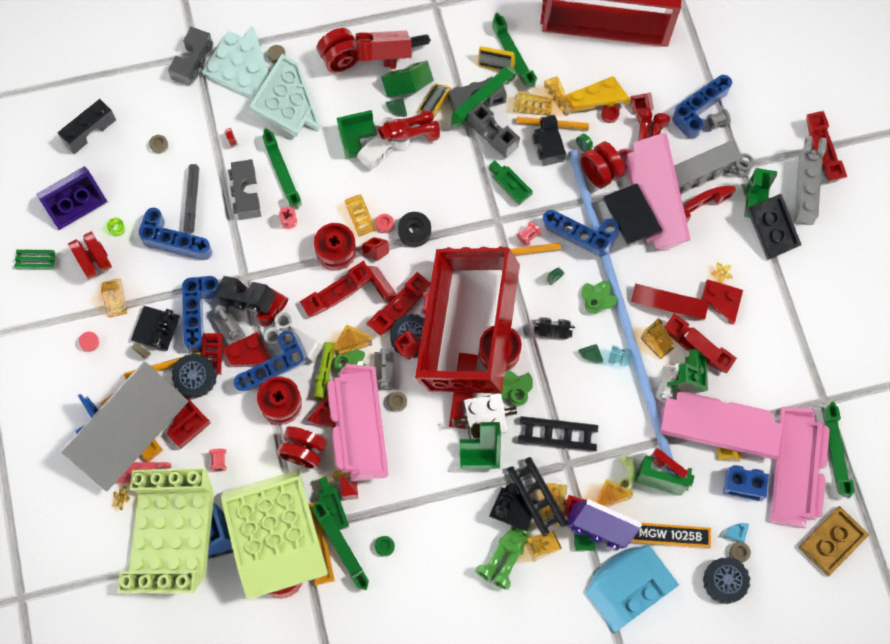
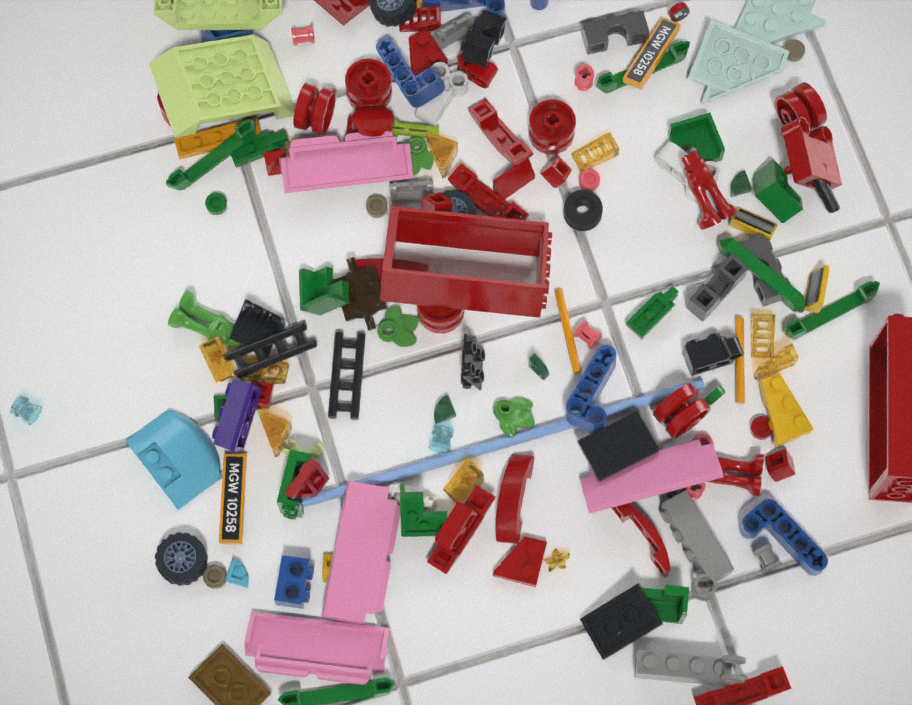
camera: 90 degrees right, 0 degrees up
(269, 162) = (651, 53): none -> tile
(319, 396) = (372, 121): none -> red tile

